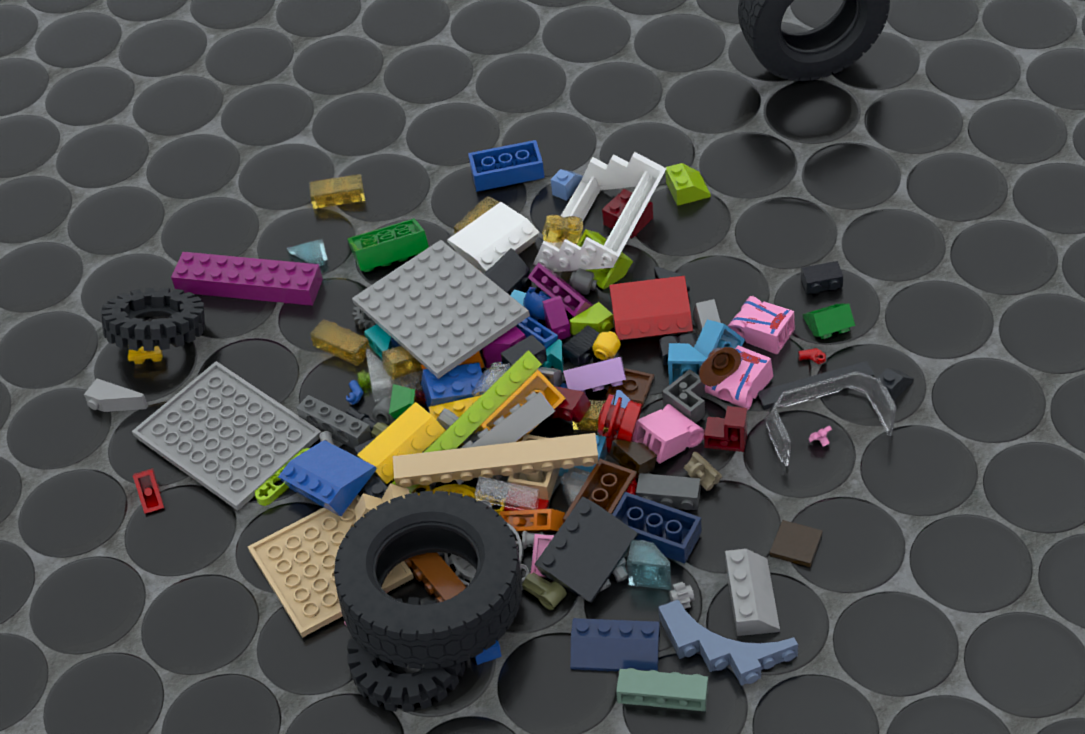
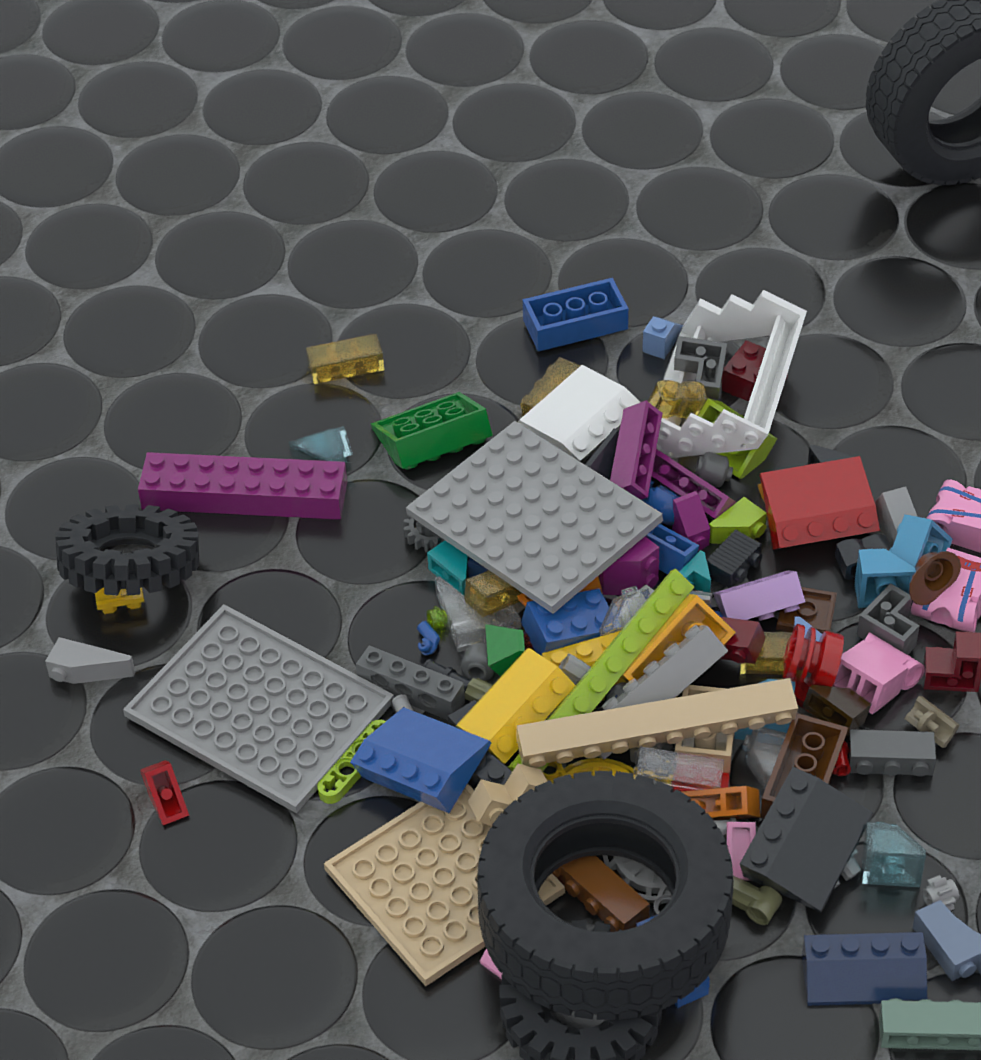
camera: 10 degrees left, 0 degrees up
(340, 342) = (394, 569): clear yellow brick -> none
(518, 350) = (655, 570): black brick -> none
(523, 264) = (636, 448): none -> magenta brick
(588, 202) = (703, 358): none -> dark grey brick
(606, 345) = (768, 556): yellow head -> none
(667, 527) = (894, 797): dark blue brick -> none
(685, 184) = (825, 332): lime slope -> none

